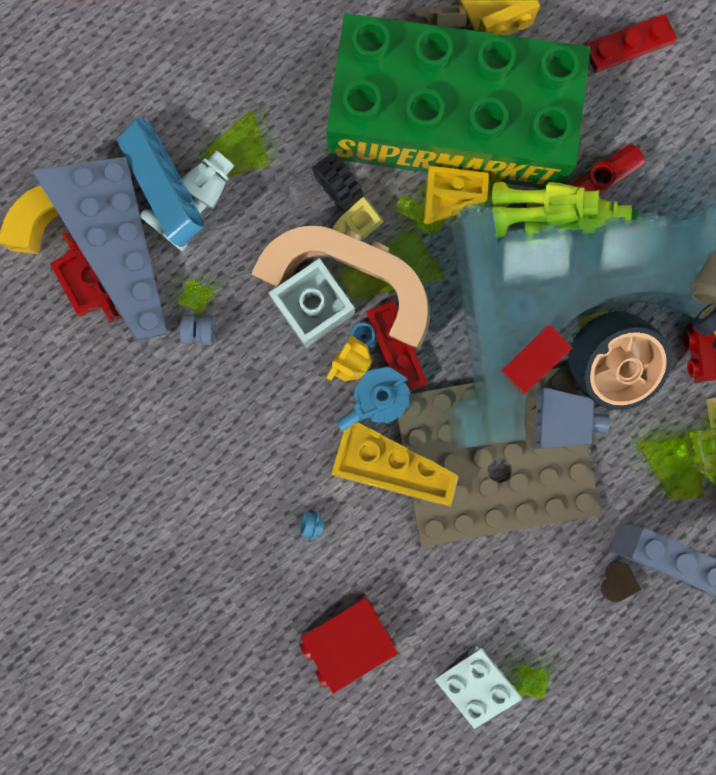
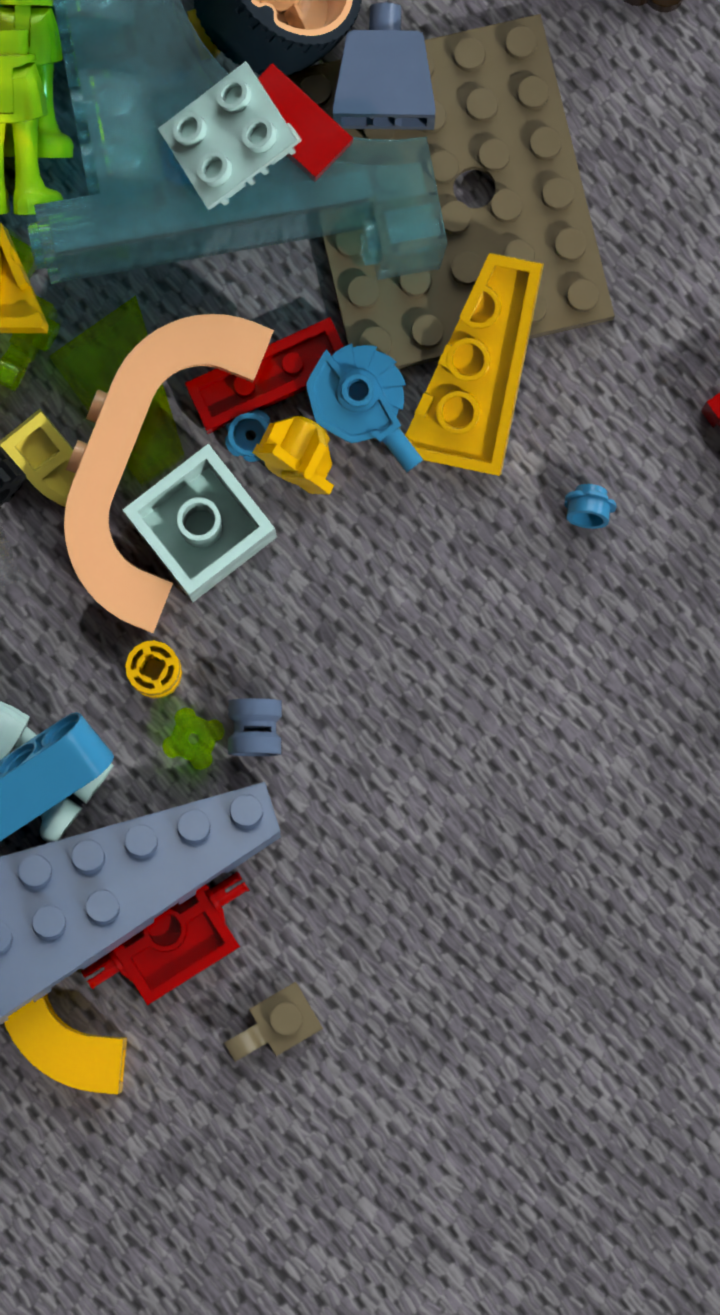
camera: 90 degrees left, 0 degrees up
(37, 335) = (281, 1022): none -> dark tan plate
(236, 281) = (157, 677): none -> yellow wheel
(527, 319) = (229, 136): none -> light aqua hinge

